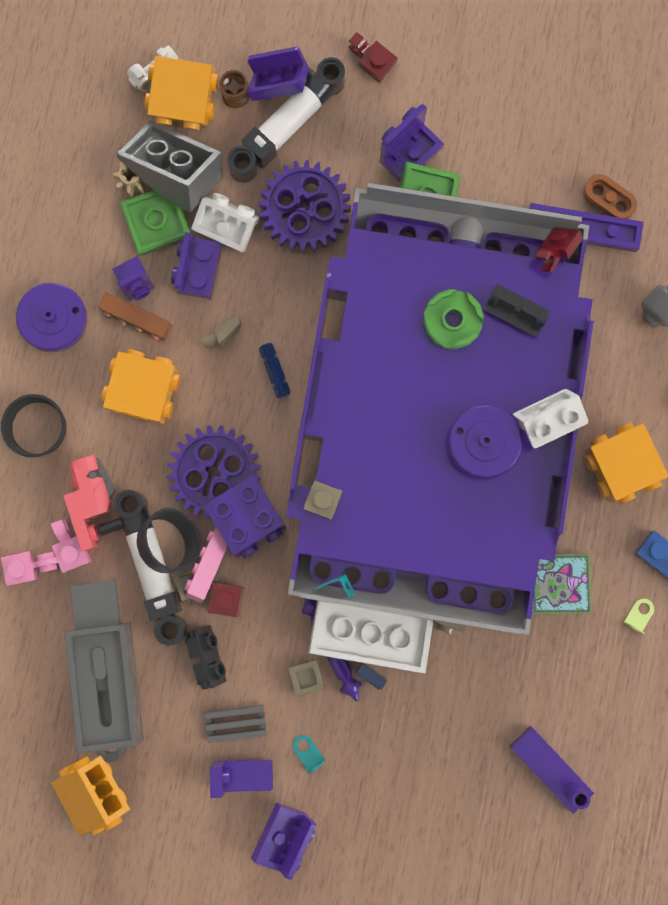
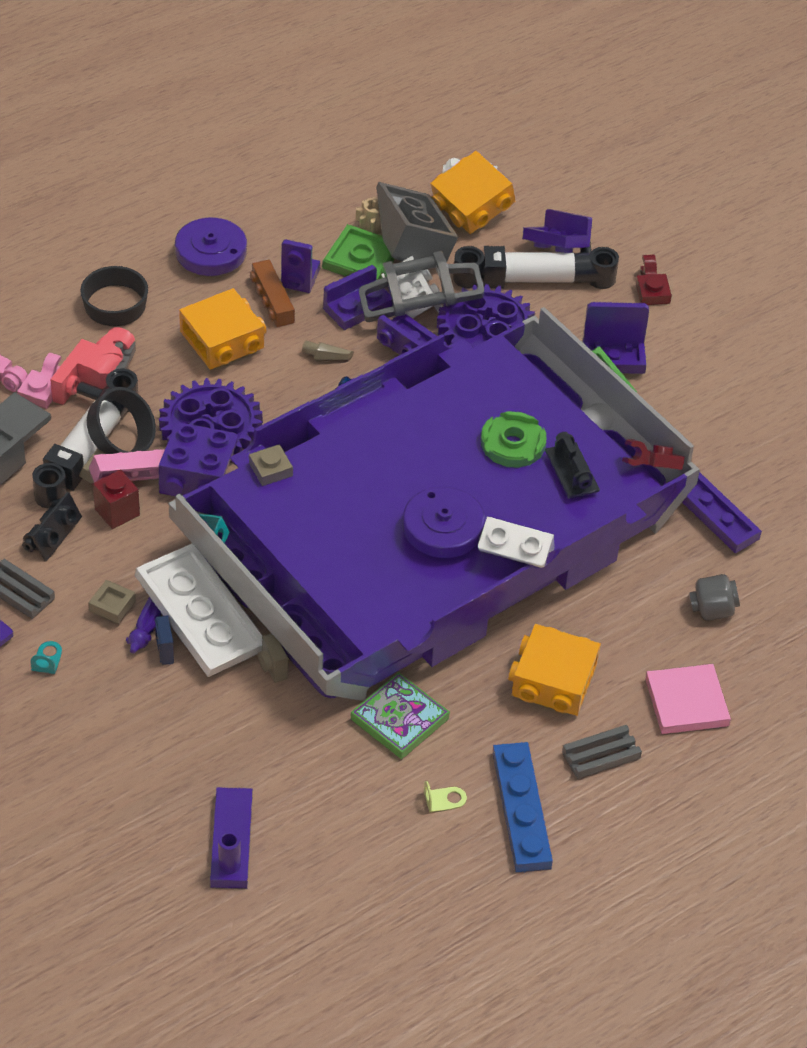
camera: 40 degrees right, 35 degrees down
(233, 82) = (515, 218): reddish brown wheel -> none
(265, 215) = (401, 306): none -> dark grey bar
(270, 270) = (402, 333): none -> dark purple bracket
(610, 196) = (754, 502): dark orange plate -> none

